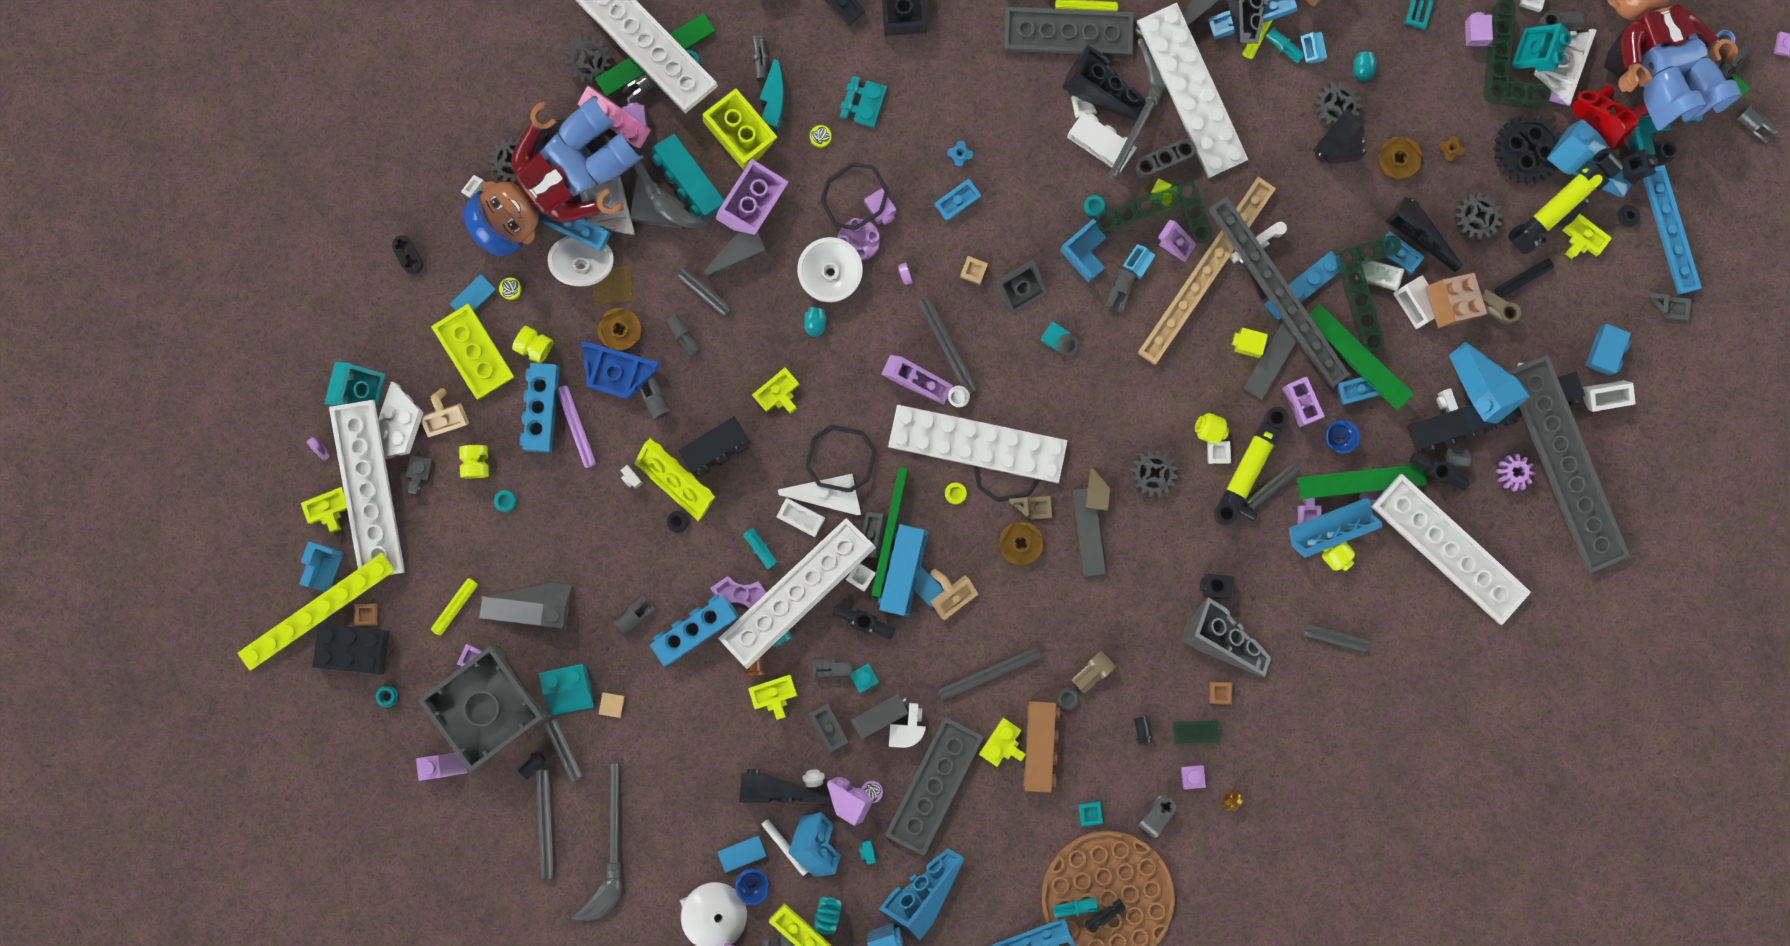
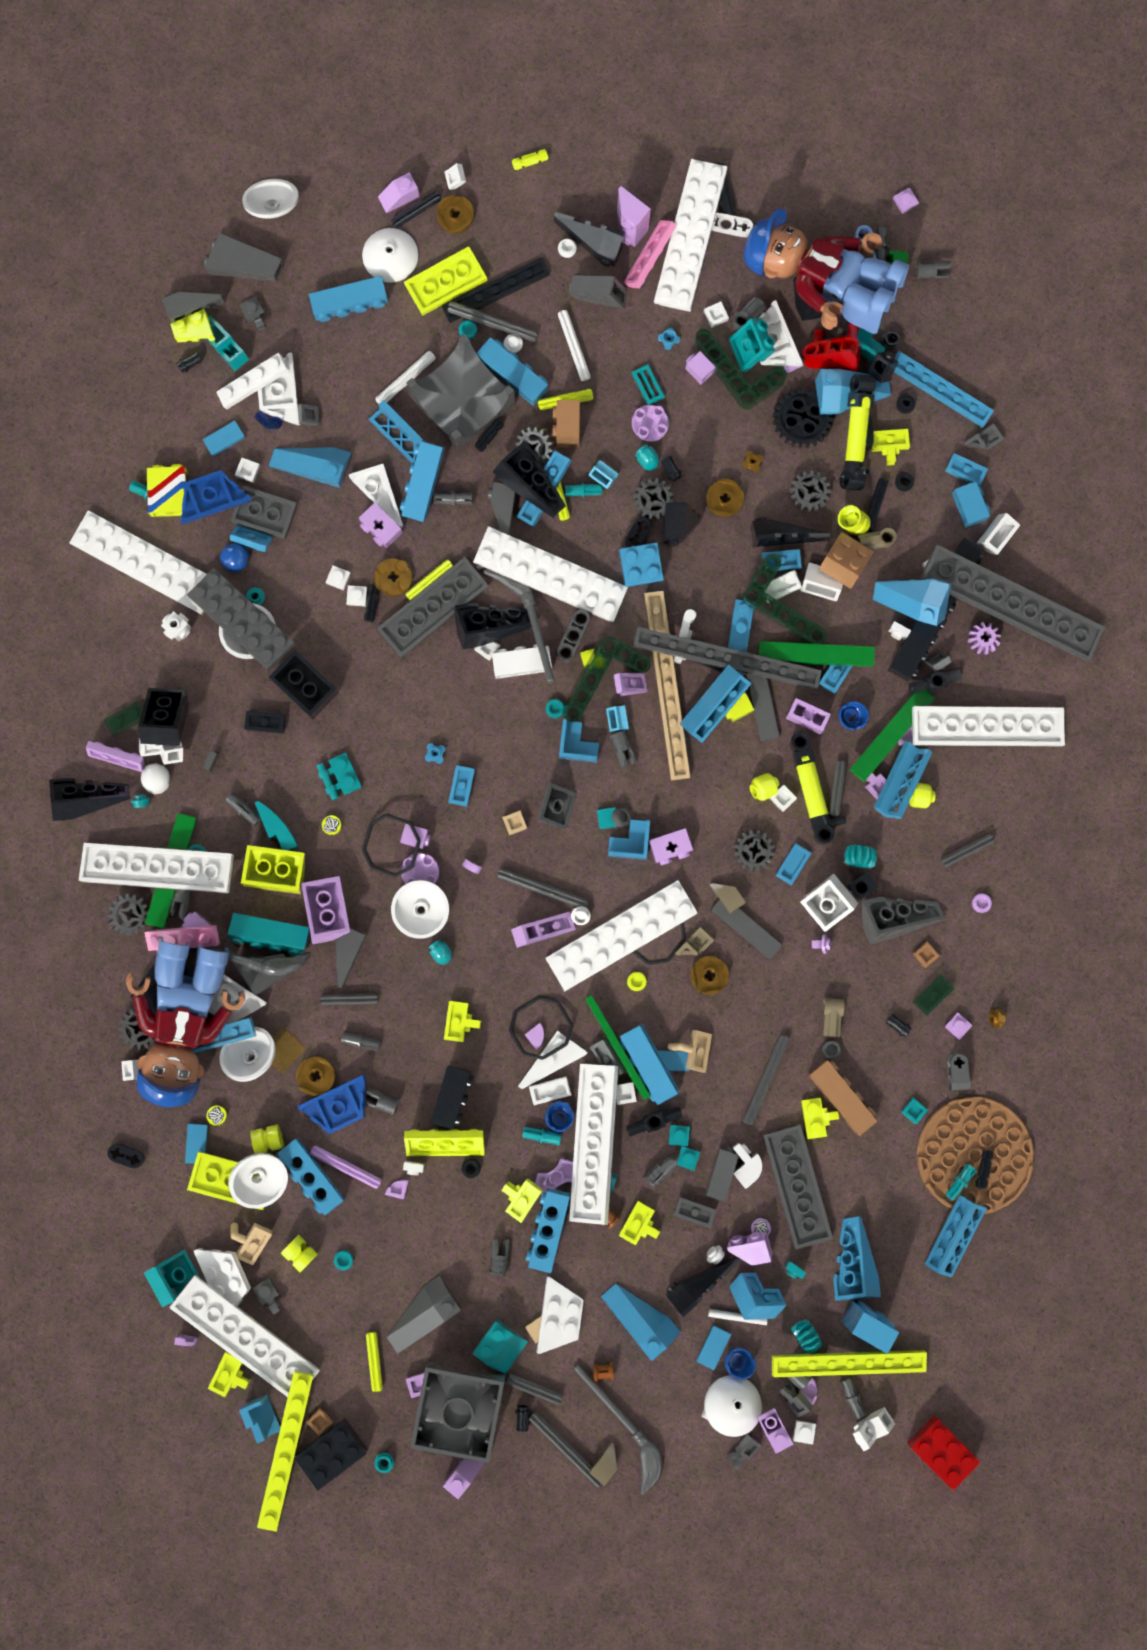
camera: 45 degrees left, 0 degrees up
(493, 381) = (260, 1189): none -> white dish
(563, 867) = (605, 1466): none -> dark tan slope
(602, 484) = (398, 1189): none -> lavender tile
(633, 794) = (607, 1367): none -> dark orange bush
(638, 710) = (559, 1316): none -> white wing
(696, 584) = (521, 1198): none -> neon yellow hinge
(703, 781) = (645, 1324): none -> dark azure wedge
(781, 547) = (555, 1122): none -> blue hair
(830, 462) = (536, 1036): none -> lavender tile
(874, 652) = (679, 1135): none -> teal plate
(1057, 380) = (634, 847): none -> dark azure panel
(1099, 406) = (678, 838): none -> lavender brick
(1142, 605) = (825, 944): none -> lavender plate
(1177, 515) = (793, 864): none -> dark azure tile
(1178, 573) = (829, 902): none -> white brick
(1233, 320) = (715, 703): none -> dark azure brick
(1240, 559) = (860, 856): none -> teal gear
(1276, 149) = (640, 564): none -> dark azure brick
(1295, 118) = (634, 531): none -> black beam
(1308, 692) = (981, 903): none -> lavender tile
(1374, 99) = (671, 468): none -> black pin
(1393, 39) = (650, 422): none -> lavender dish
(1494, 273) = (854, 520): none -> neon yellow wheel
(1573, 280) = (906, 476): none -> black plate
(1630, 316) = (966, 469): none -> dark azure plate

